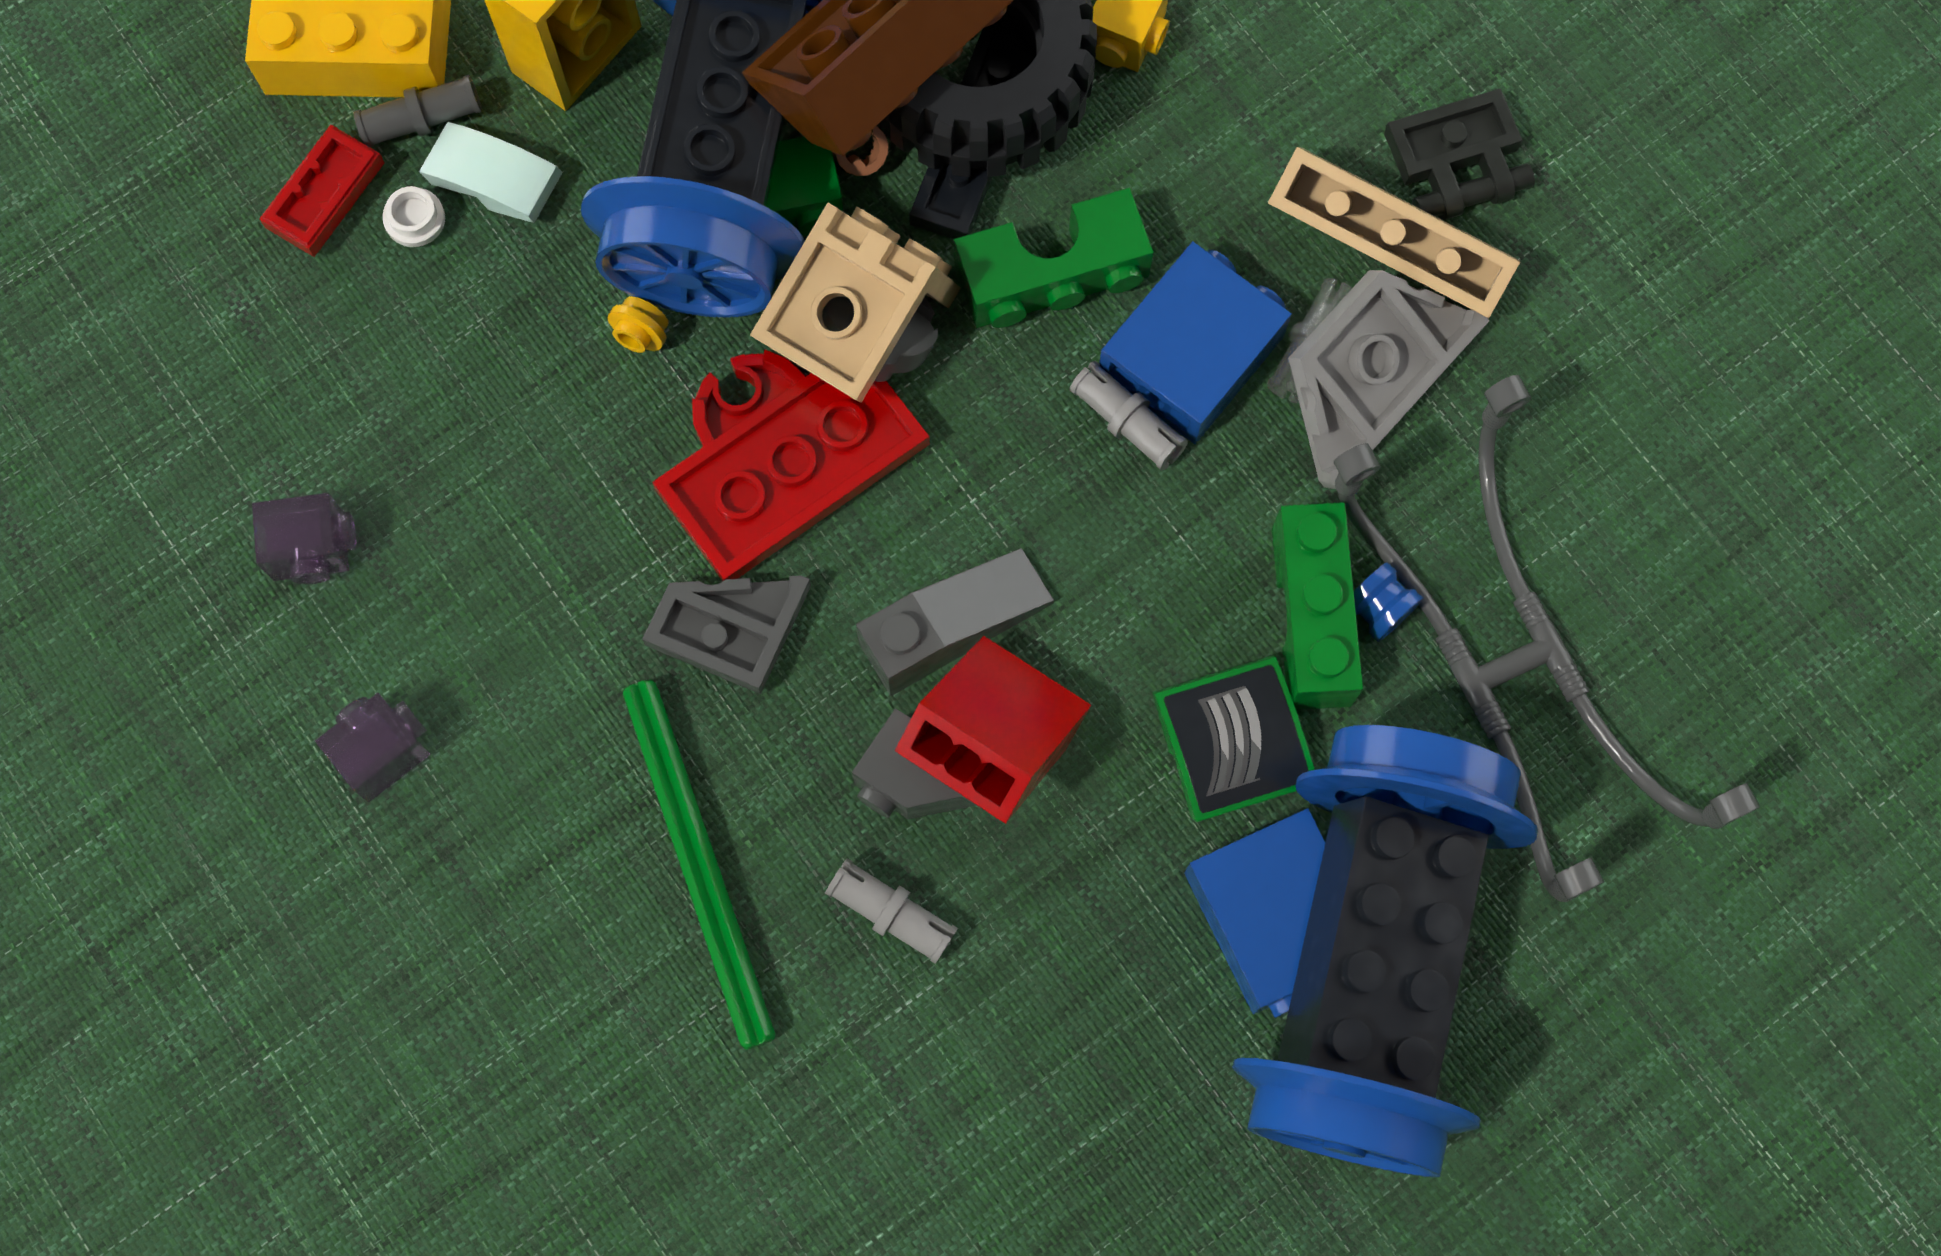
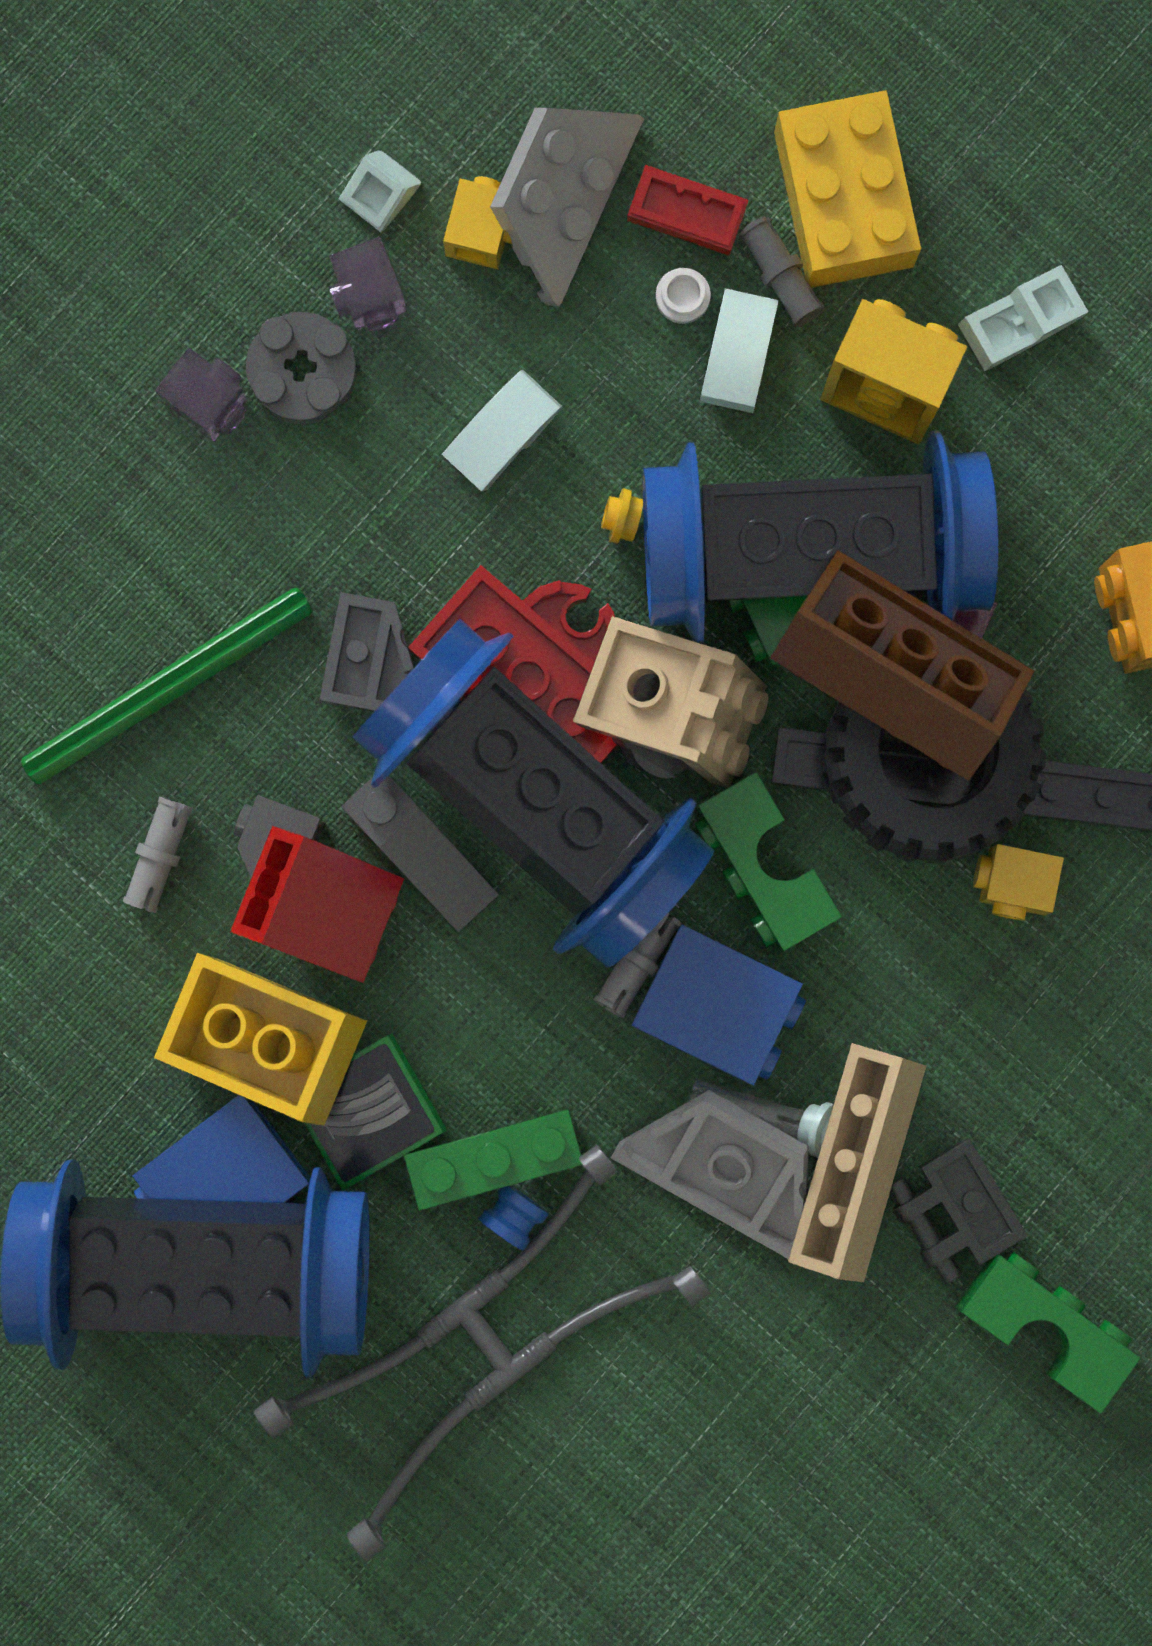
camera: 80 degrees right, 10 degrees up
(199, 510) = (379, 189): none -> light aqua slope
(259, 308) = (560, 189): none -> light grey wing
(269, 402) = (472, 227): none -> yellow brick
(357, 603) = (281, 342): none -> dark grey plate
(508, 432) = (502, 430): none -> light aqua slope
(926, 449) = (537, 795): none -> black brick
(1132, 826) = (260, 1040): none -> yellow brick
(1345, 264) = (814, 1126): none -> light aqua plate
(1635, 59) = (1090, 1357): none -> green arch

